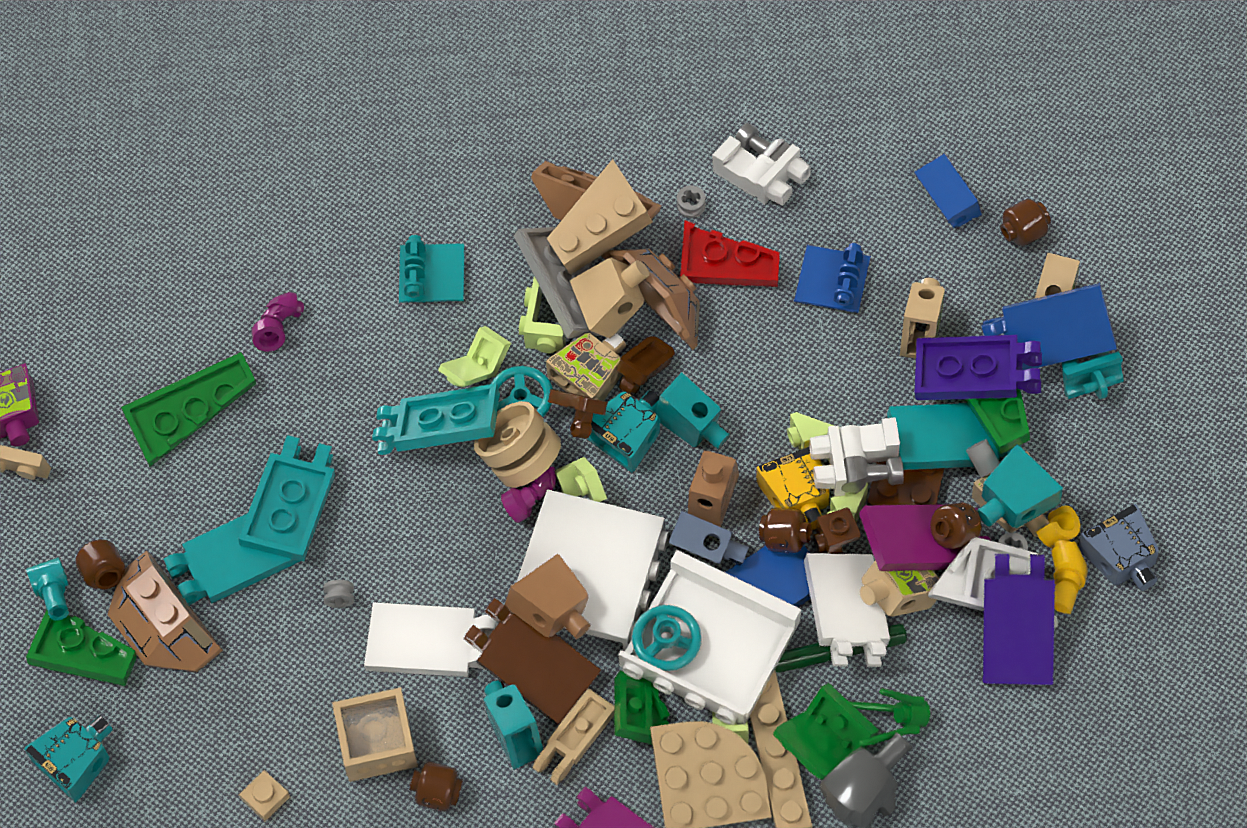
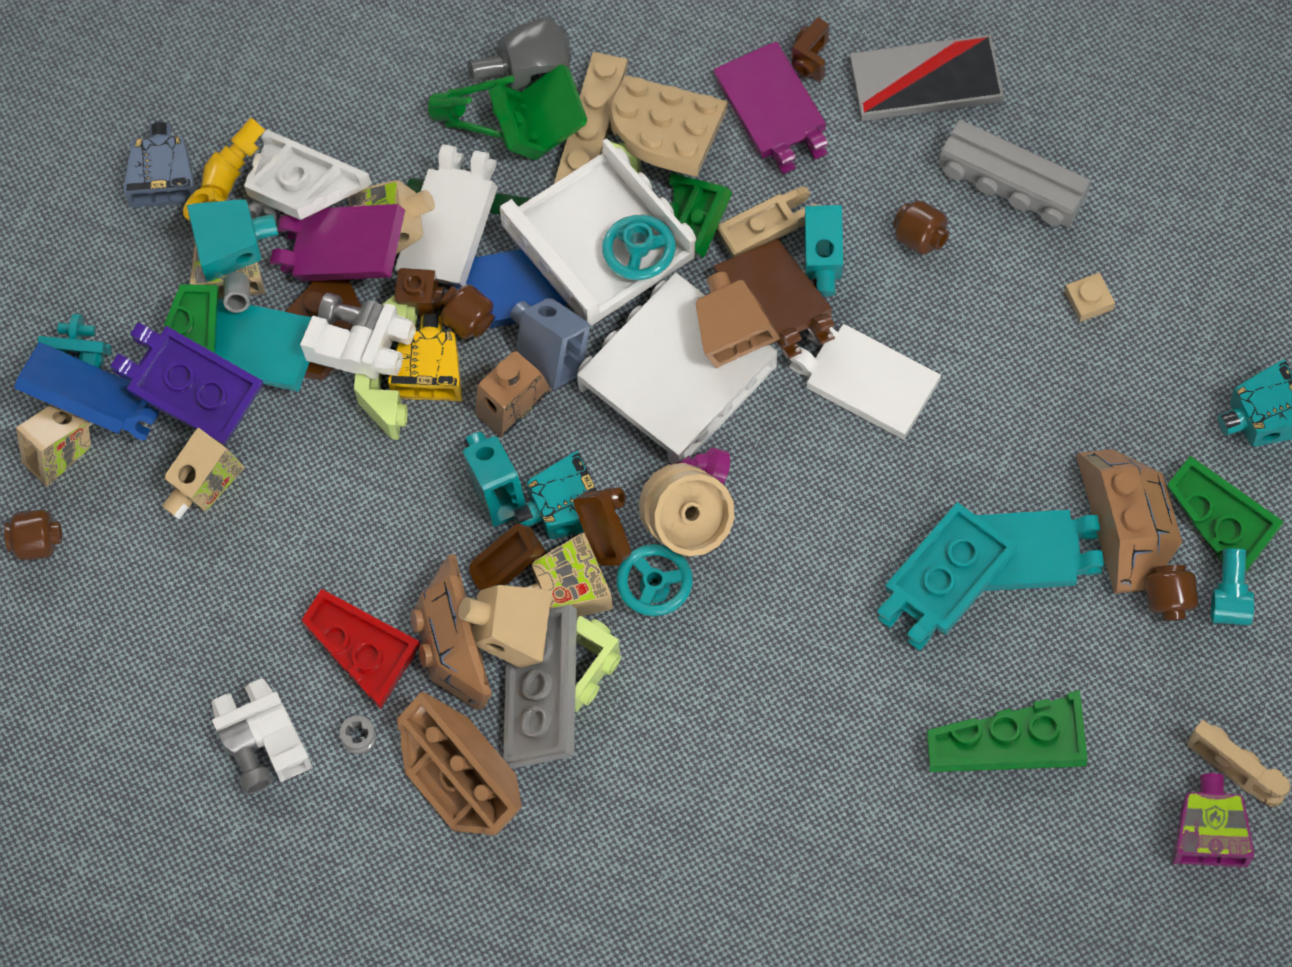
camera: 155 degrees left, 5 degrees up
(269, 332) = (862, 808): magenta arm -> none
(338, 593) = (935, 456): light grey bush -> none
(374, 734) = (960, 291): piece -> none
(431, 271) = (679, 780): teal hinge -> none
(438, 419) = (751, 577): teal tile -> none
(481, 360) = (686, 637): yellowish green bracket -> none
(580, 479) = (633, 451): yellowish green bracket -> none
(599, 220) = (478, 699): tan wedge -> none
(833, 277) = (262, 575): blue hinge -> none
(949, 191) = (87, 611): blue hinge -> none
(957, 523) = (306, 228): reddish brown head -> none
(1018, 625) = (304, 126): dark purple tile -> none

